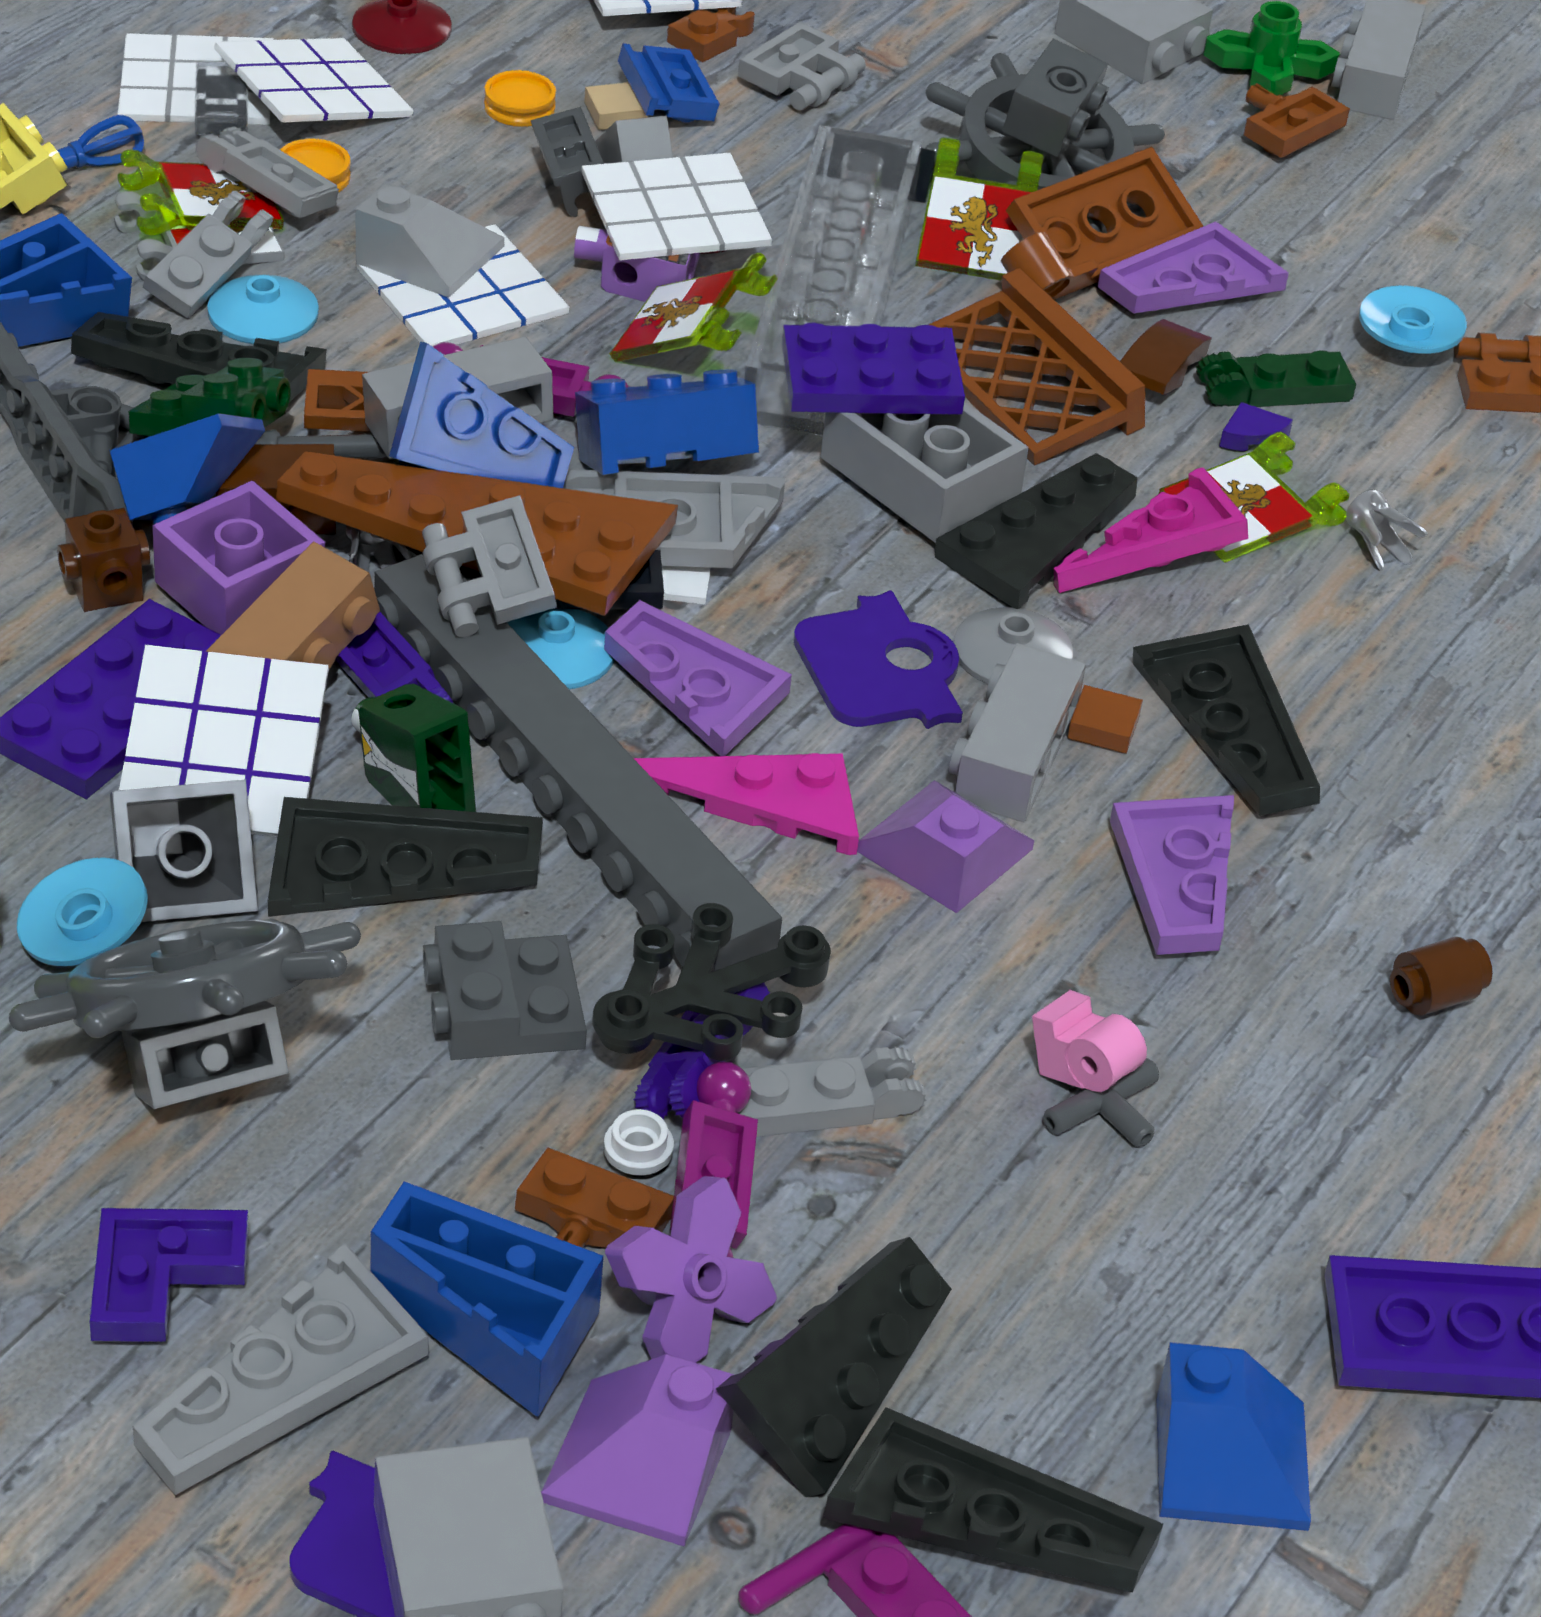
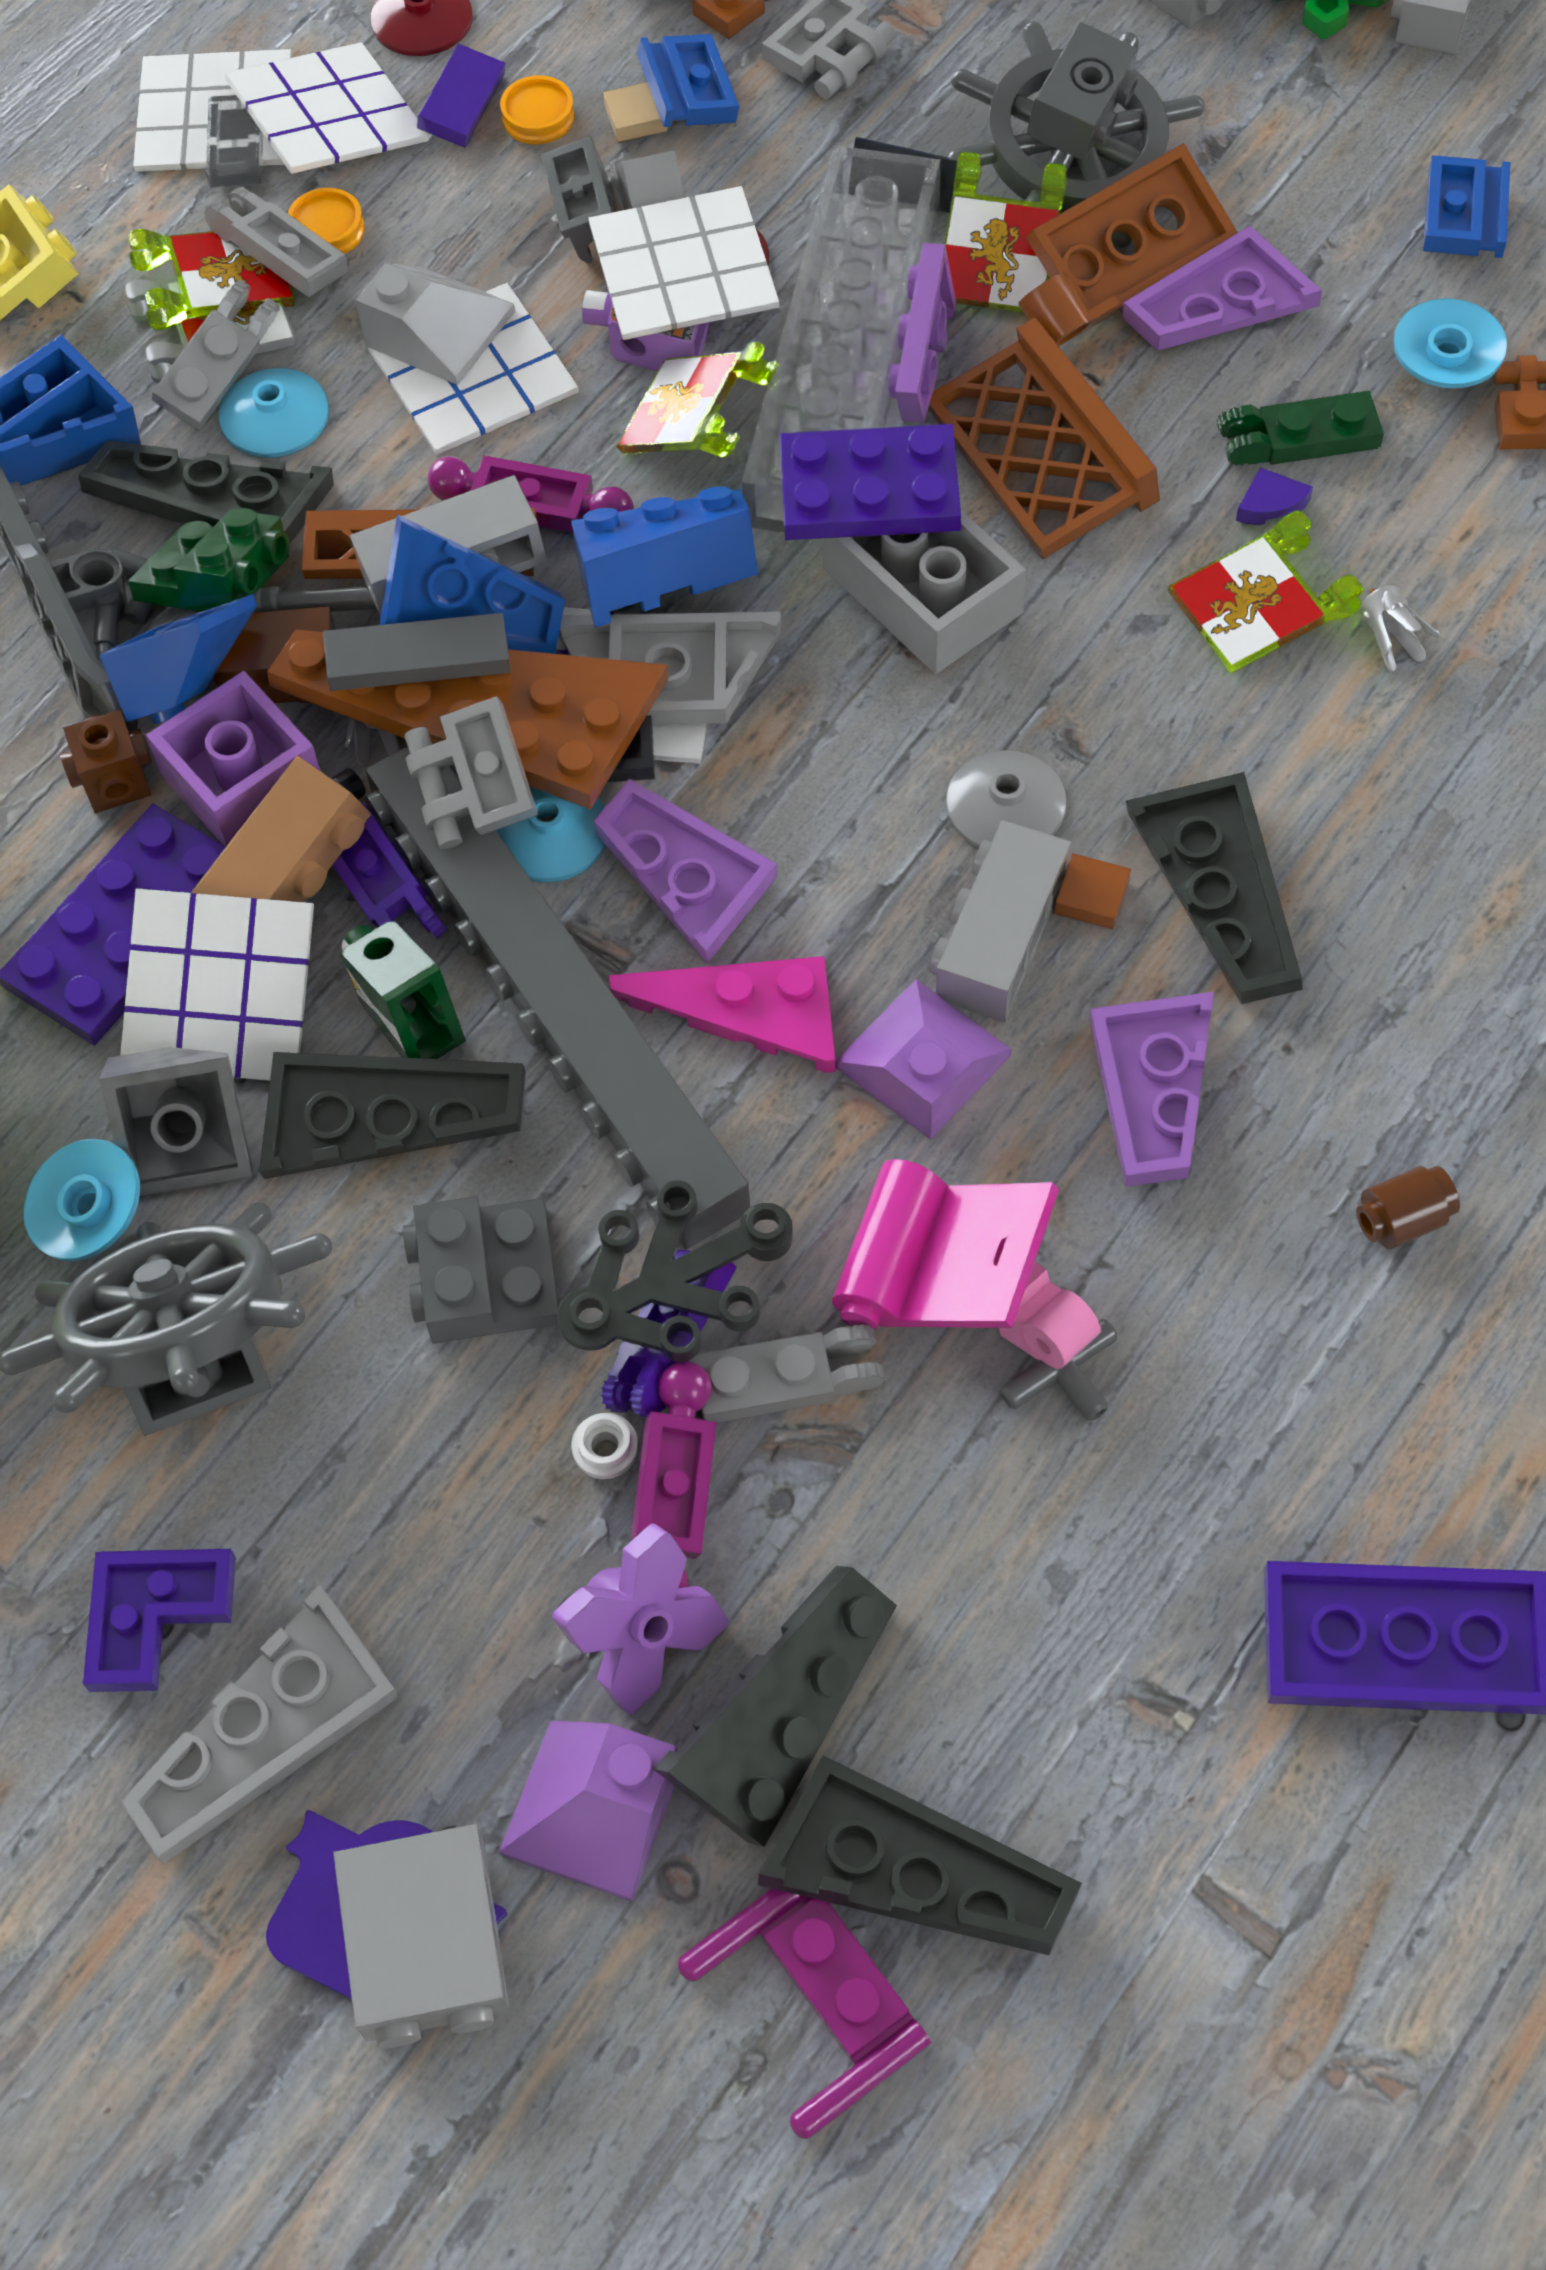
camera: 10 degrees right, 20 degrees up
(80, 154) = (91, 228): blue piece -> none
(431, 468) = (416, 651): none -> dark grey tile
(445, 81) = (461, 95): none -> dark purple tile
(488, 1289) = (451, 1639): blue wedge -> none
(589, 1201) = (557, 1521): dark orange plate -> none
(856, 679) = (846, 850): dark purple piece -> none
(913, 266) = (923, 332): none -> medium lavender wing
(976, 992) = (942, 1251): none -> dark pink door
(1030, 533) = (1028, 657): pearl dark grey wing -> none
(1161, 532) = (1168, 648): dark pink wing -> none
(1163, 354) = (1181, 411): reddish brown slope -> none
(1230, 1441) = (1157, 1782): blue slope -> none
(1293, 119) = (1344, 71): dark orange plate -> none
(1416, 224) = (1466, 206): none -> blue plate

